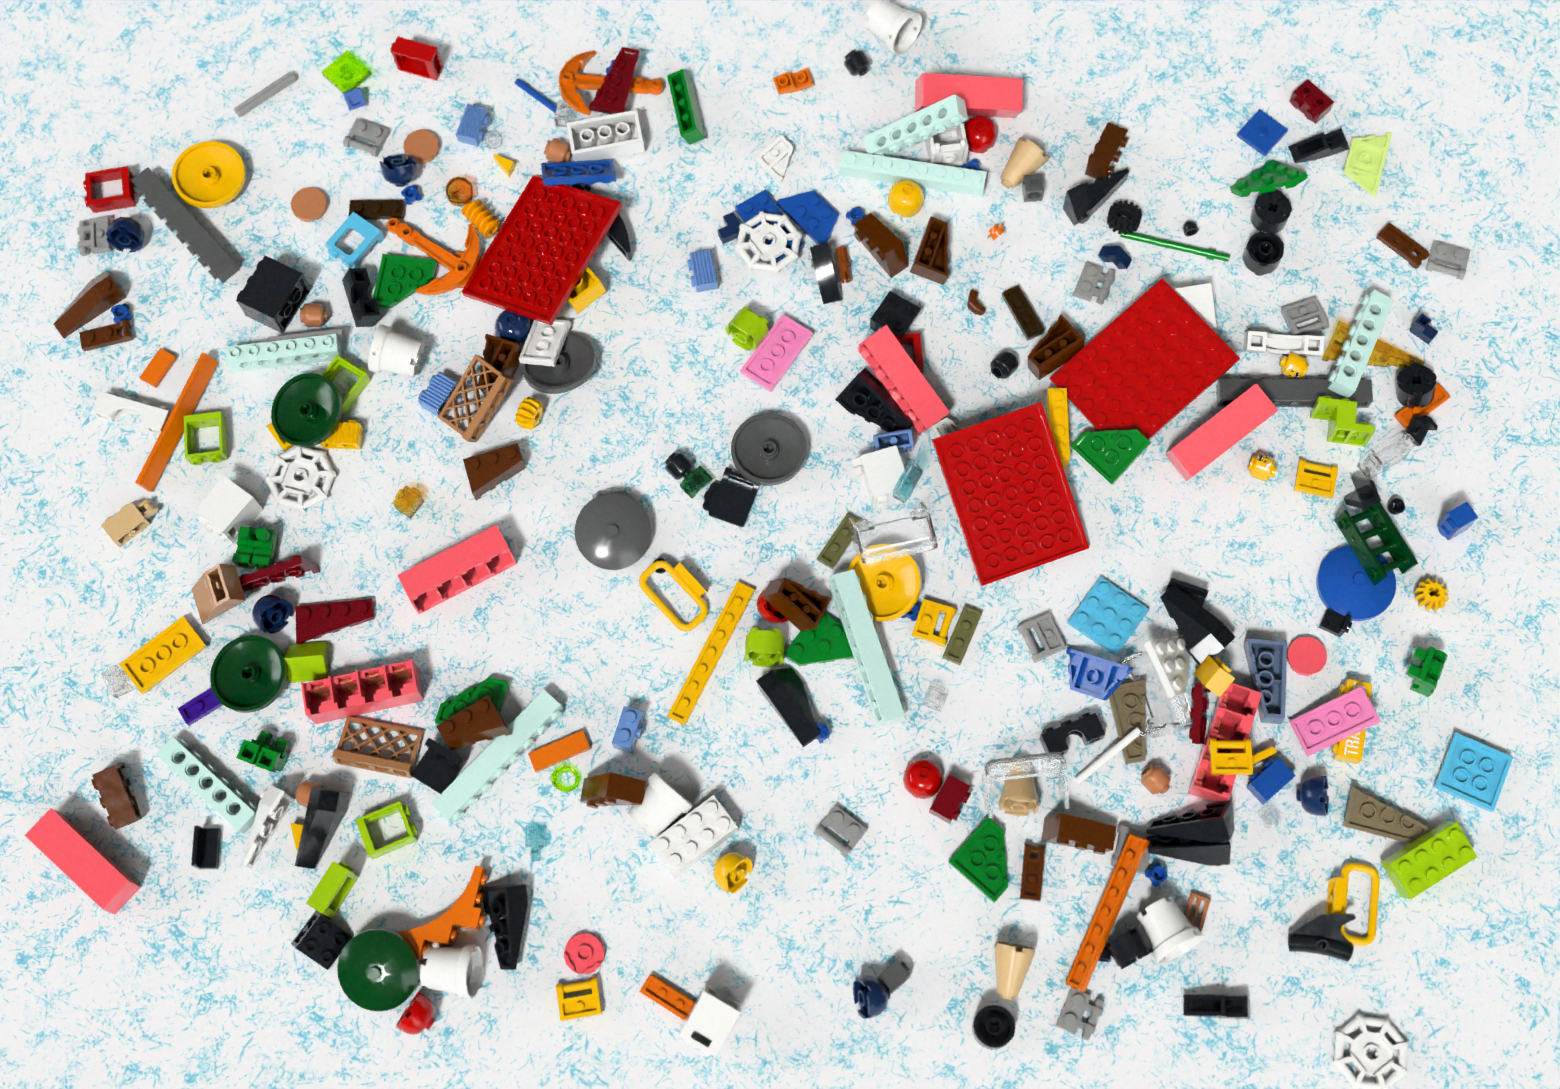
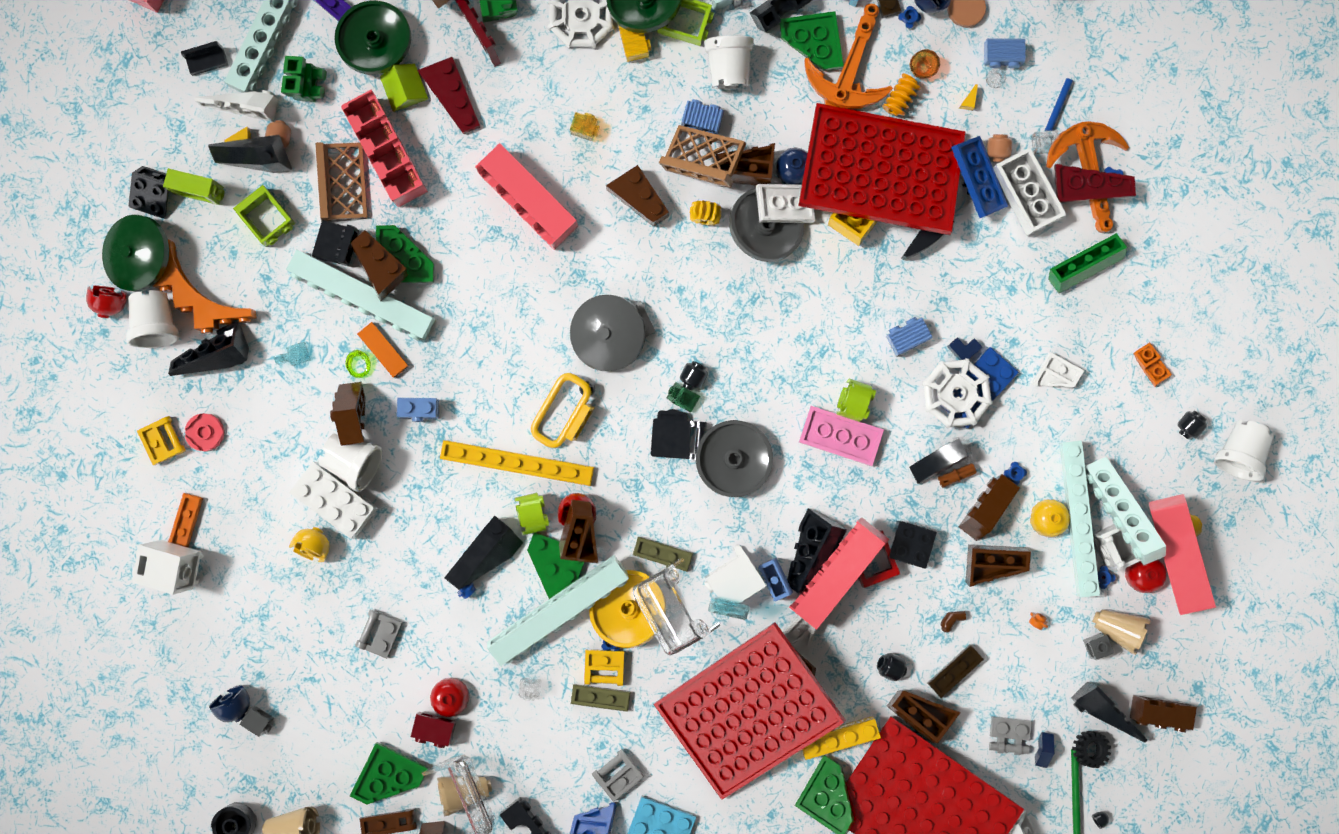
camera: 70 degrees right, 15 degrees up
(271, 613) = (437, 36): dark blue cylinder -> none
(811, 215) = (1003, 427): blue wing -> none

